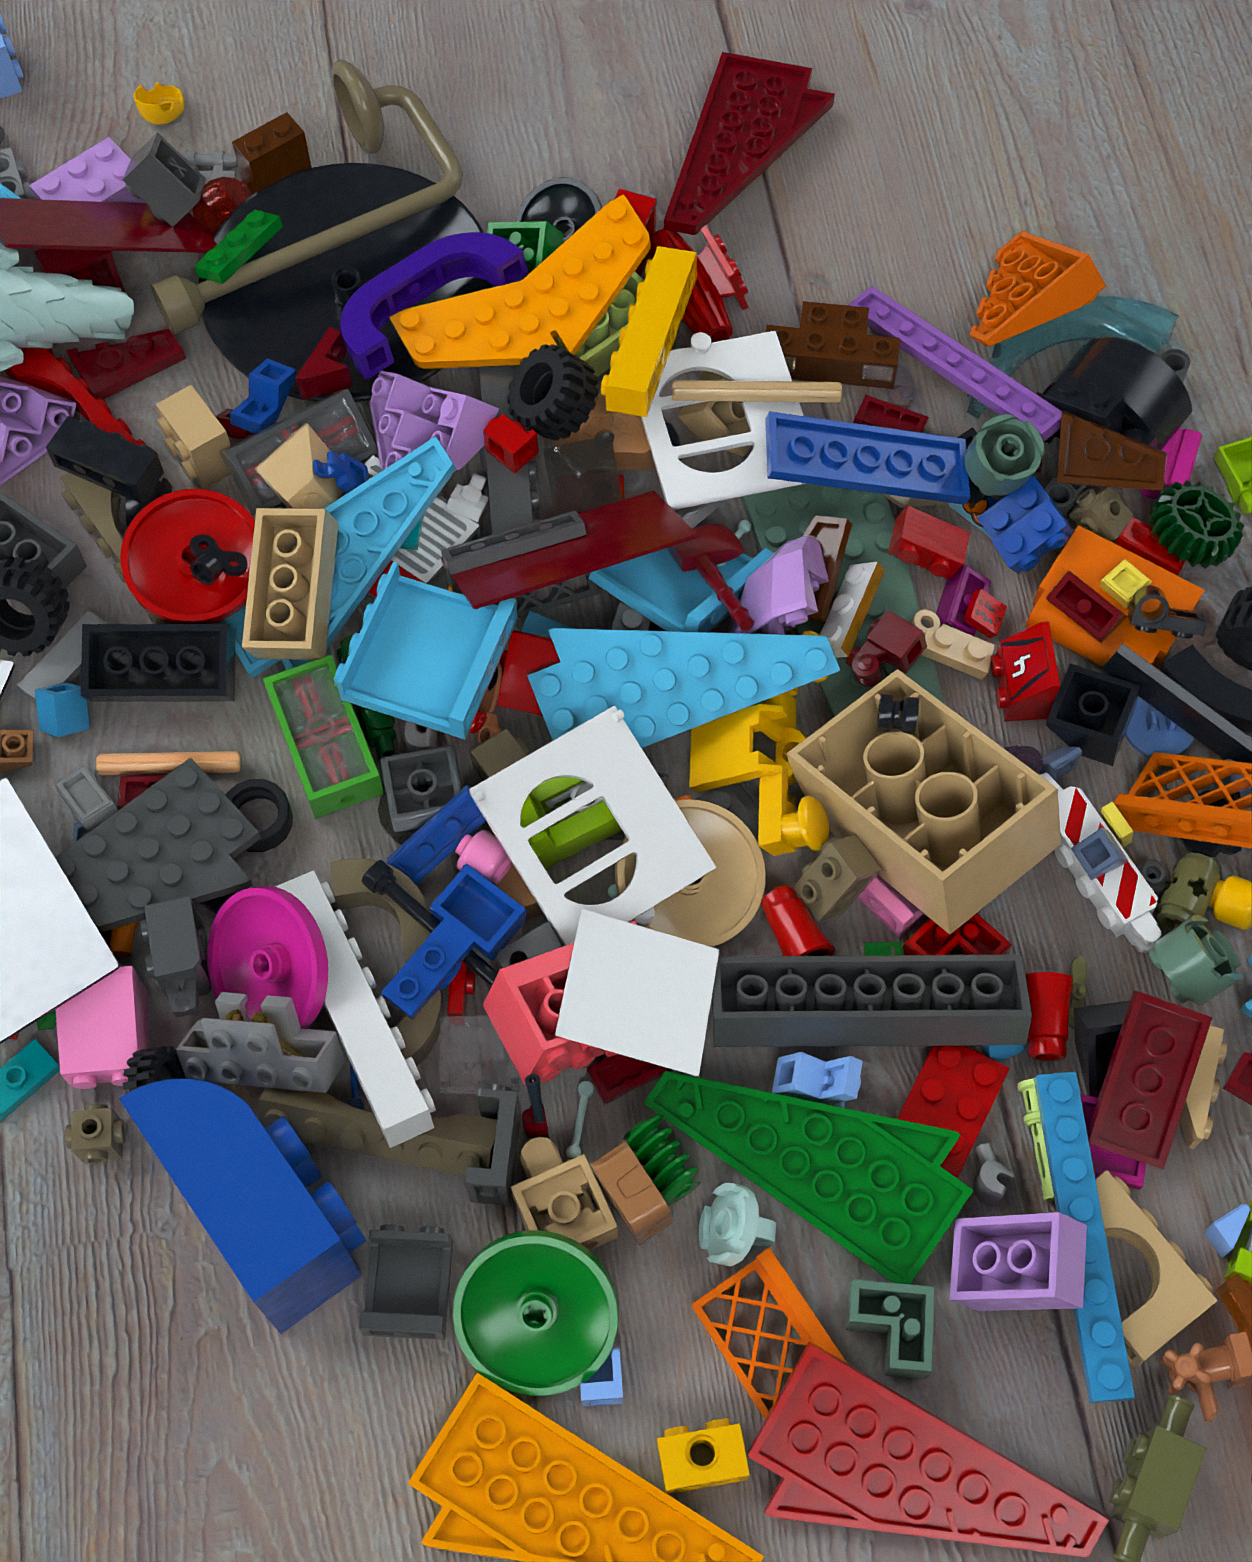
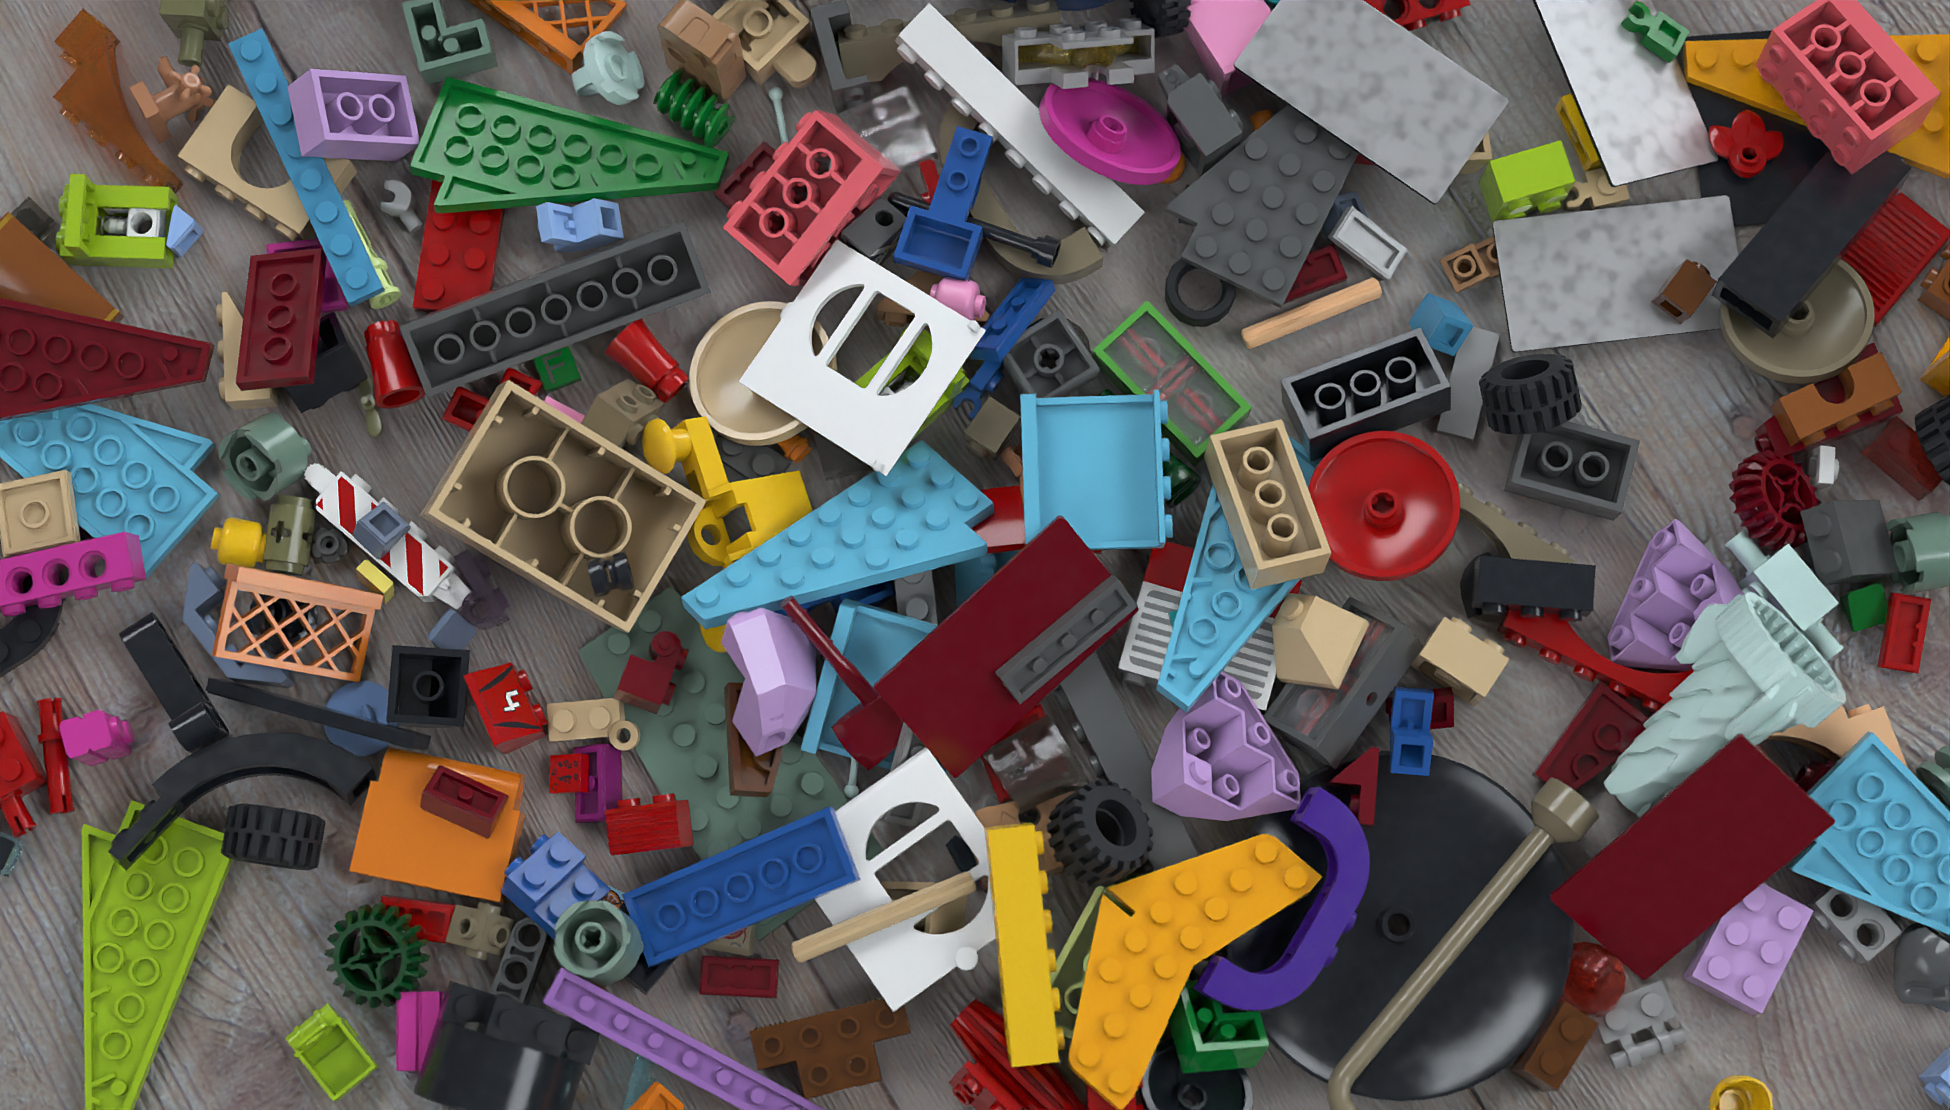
camera: 160 degrees right, 15 degrees up
(164, 180) = (1656, 960): dark grey brick -> none
(213, 560) = (1355, 499): black piece -> none
(238, 246) = (1530, 906): green plate -> none
(345, 469) = (1271, 659): blue plate -> none
(468, 499) = (1143, 698): white plate -> none
(510, 442) = (1125, 766): red brick -> none
(534, 1117) = (815, 98): piece -> none
(638, 993) = (759, 213): white sticker -> none
(851, 606) = (704, 708): white plate -> none
(1107, 458) = (484, 968): reddish brown wing -> none
(1124, 582) = (431, 842): light yellow tile -> none
(1178, 621) = (389, 806): black plate -> none

